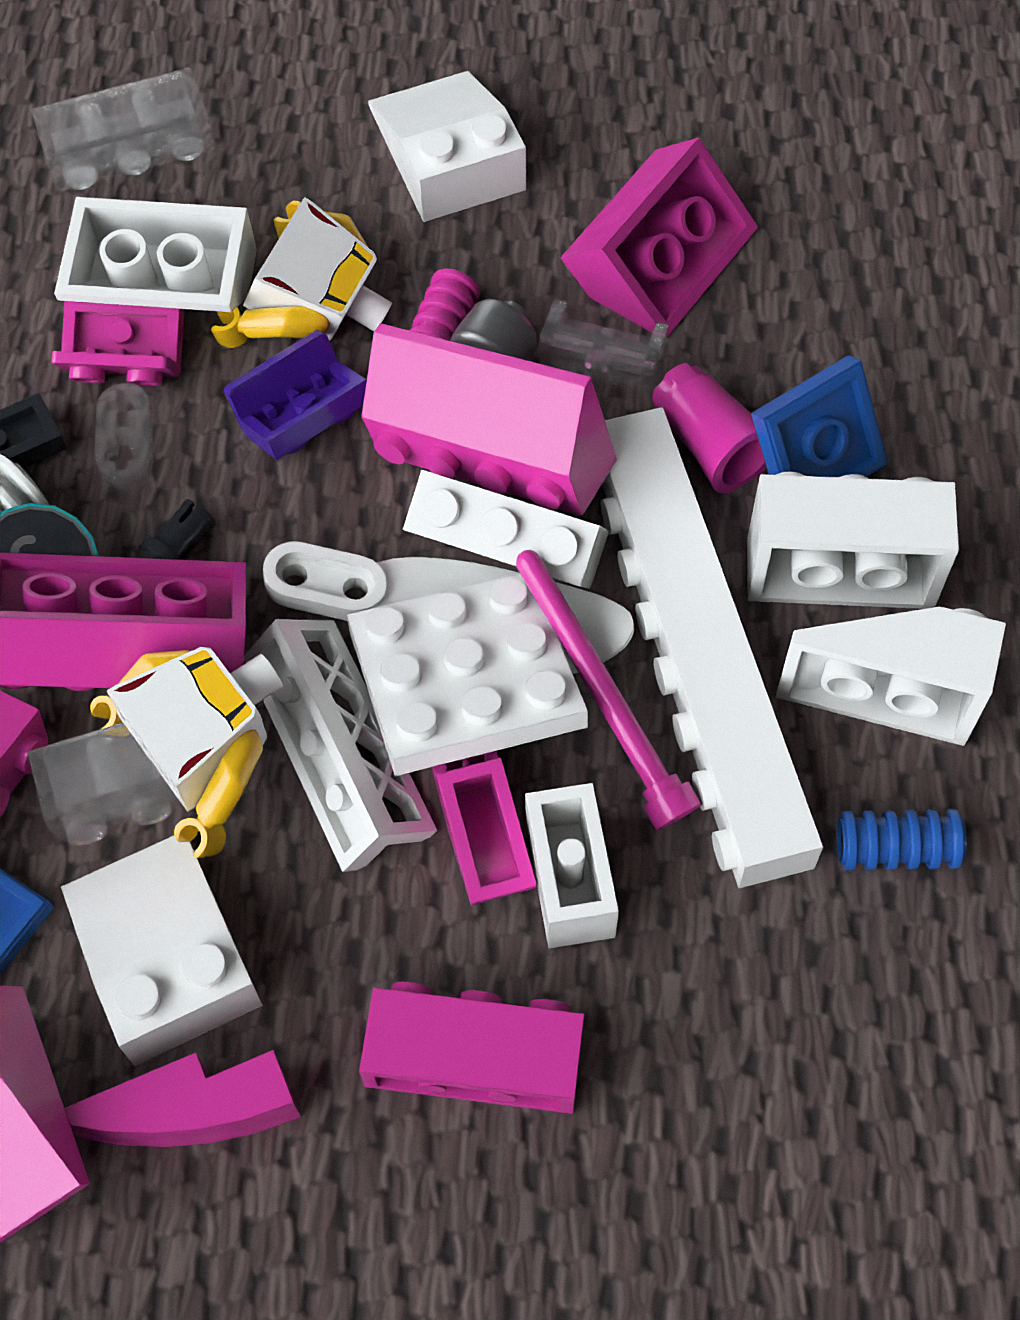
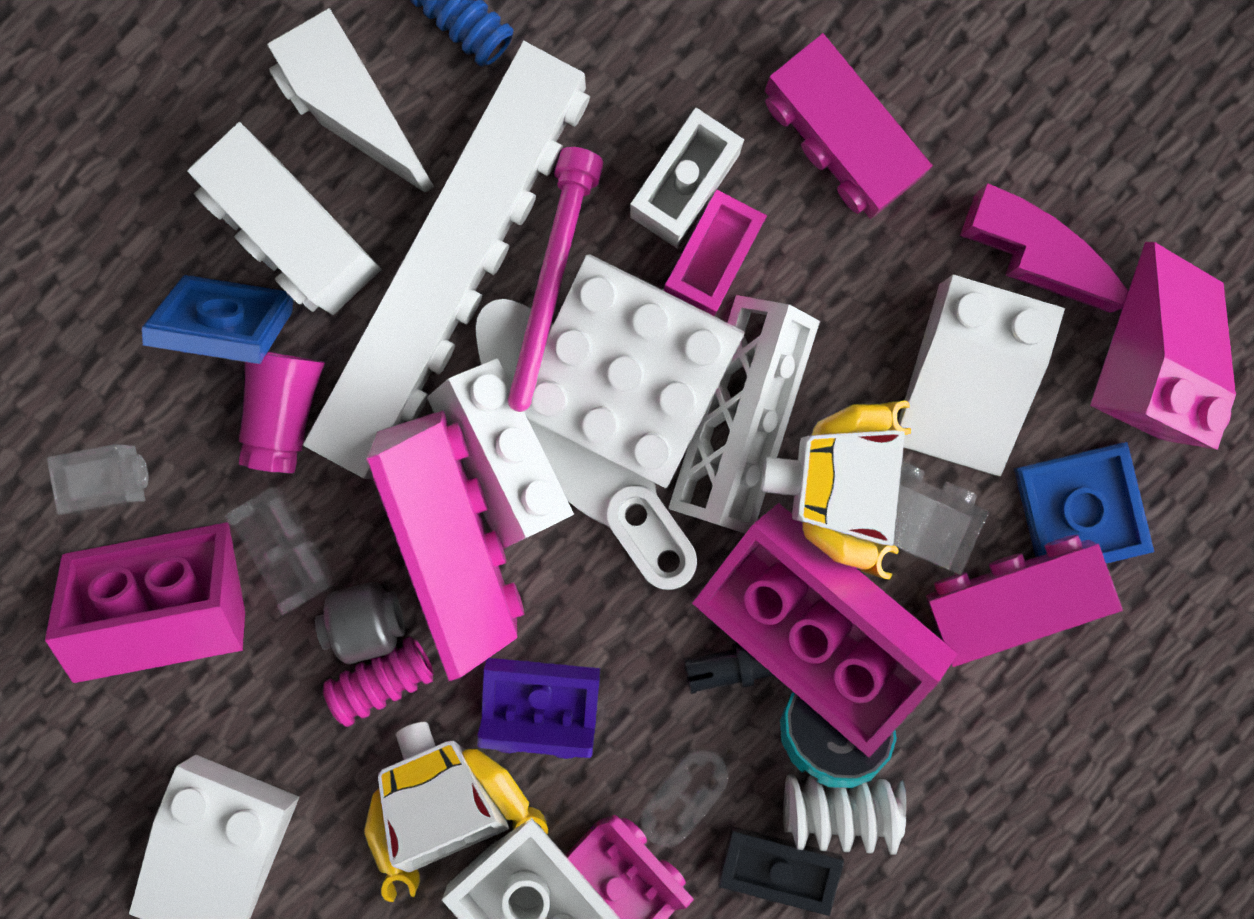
camera: 135 degrees left, 25 degrees up
(785, 274) = (97, 479): none -> clear brick

